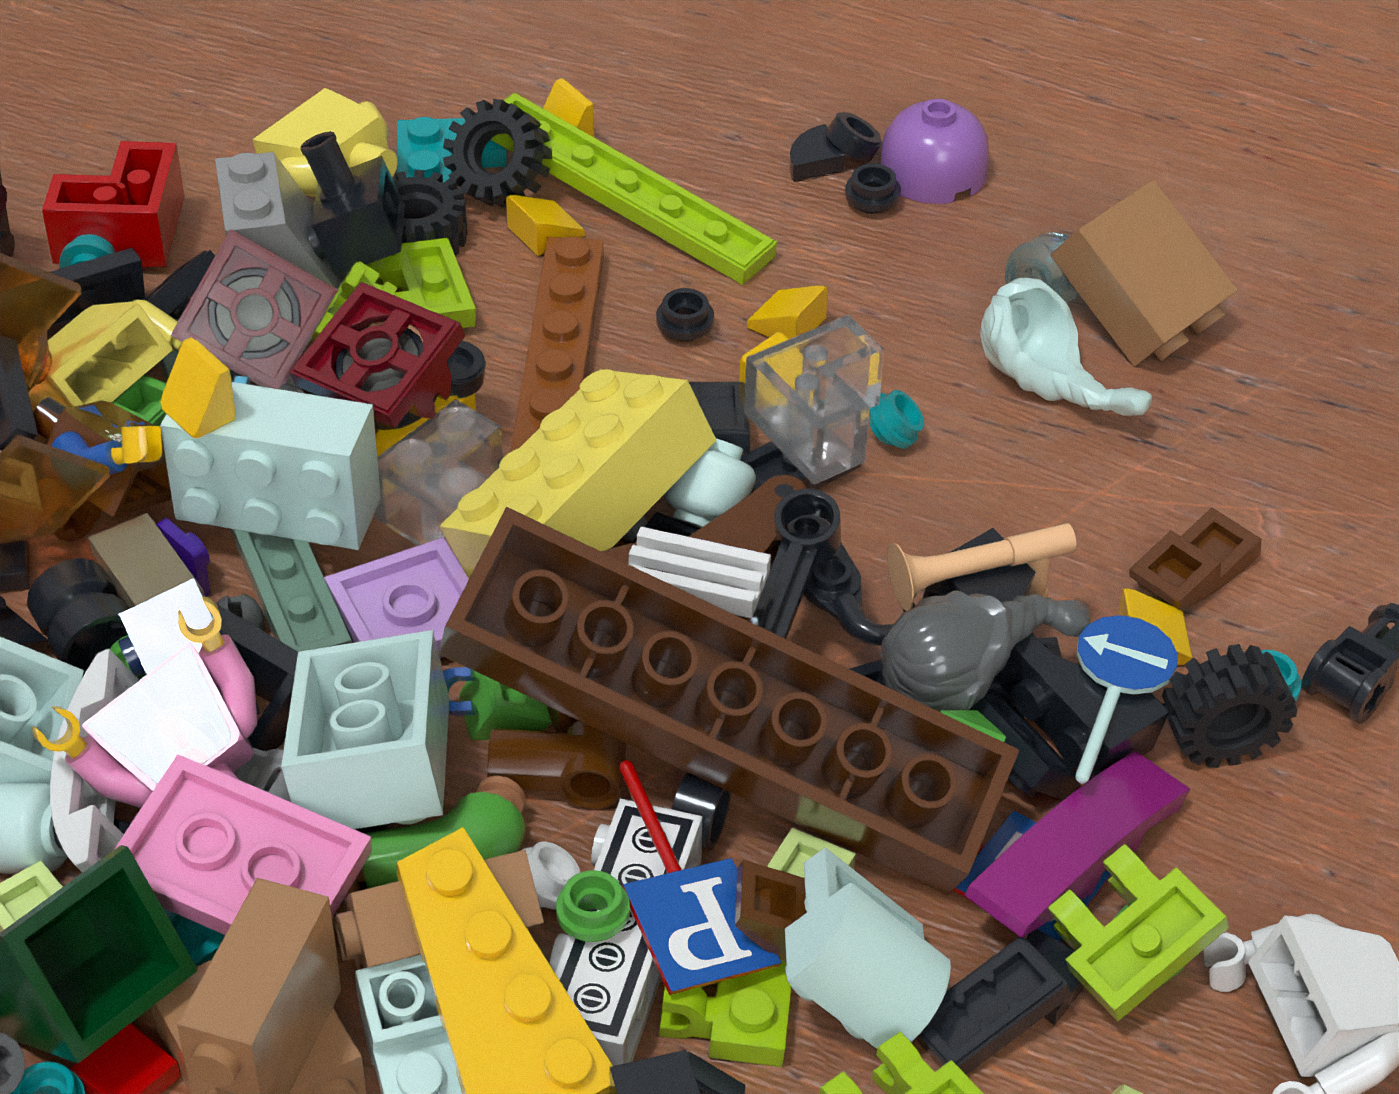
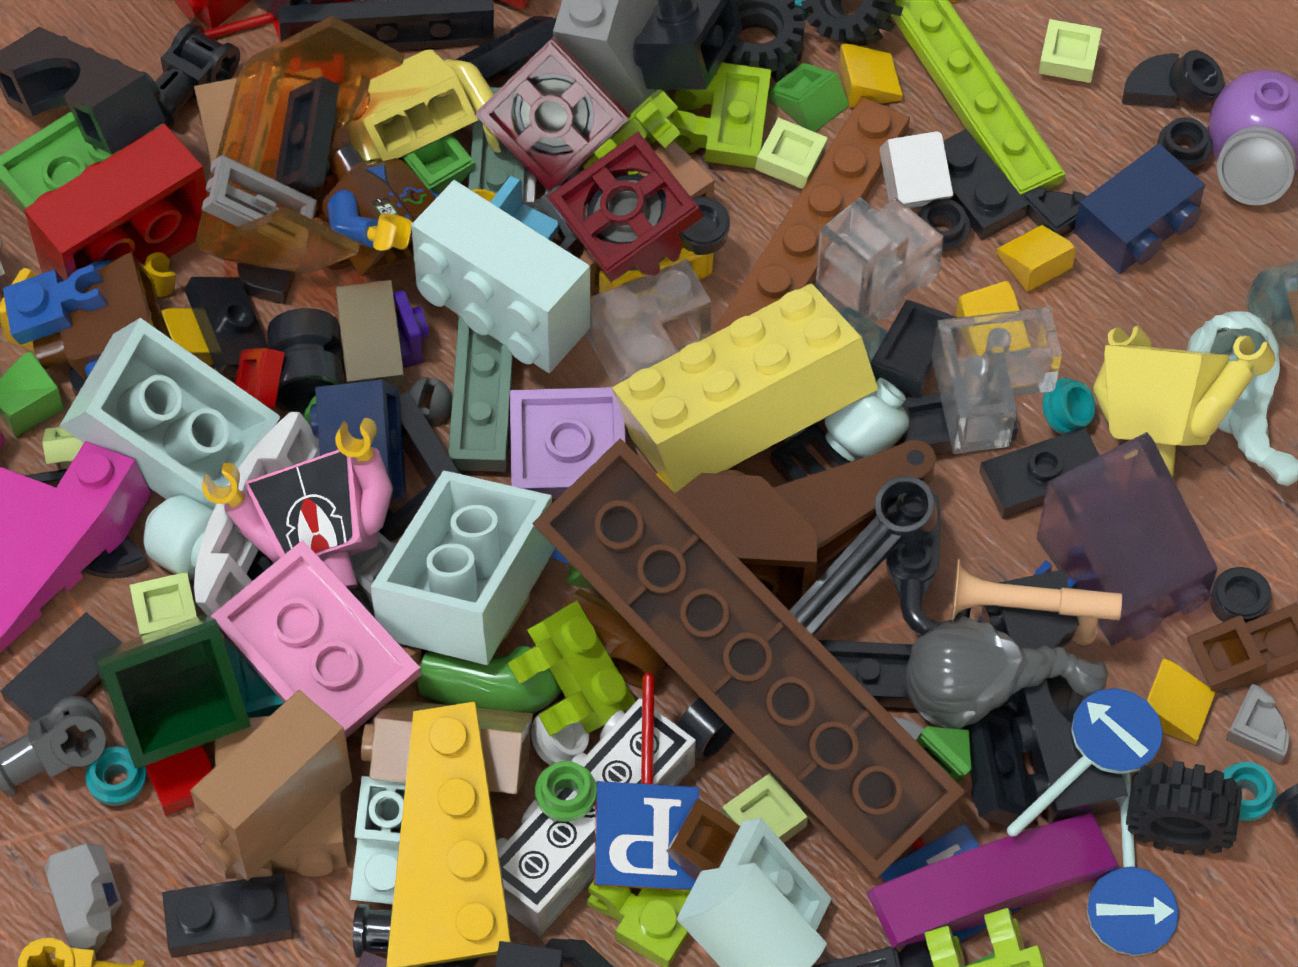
camera: 25 degrees right, 15 degrees up
(44, 632) = (260, 374): none -> red tile
(198, 391) = (447, 210): yellow slope -> none
(495, 254) = (809, 96): none -> bright green slope
(504, 300) = (791, 153): none -> yellowish green plate
(559, 810) = (581, 668): none -> lime plate
(637, 272) = (916, 169): none -> white panel
(642, 335) = (876, 257): none -> clear brick
(676, 265) = (981, 187): none -> black plate
(704, 562) = (794, 512): white tile -> none
(724, 149) = (1070, 51): none -> yellowish green plate
(784, 273) = (1053, 209): none -> black tile
(866, 245) = (1140, 209): none -> dark blue brick
(903, 484) = (1021, 477): none -> black plate
(952, 179) = (1256, 165): none -> light grey piece
(992, 368) = (1172, 392): none -> light yellow torso
(1022, 476) = (1130, 533): none -> clear purple slope
(1149, 520) = (1240, 593): none -> black tile
(1220, 823) = (1130, 905): none -> blue piece
(1242, 624) = (1260, 726): none -> light grey tile

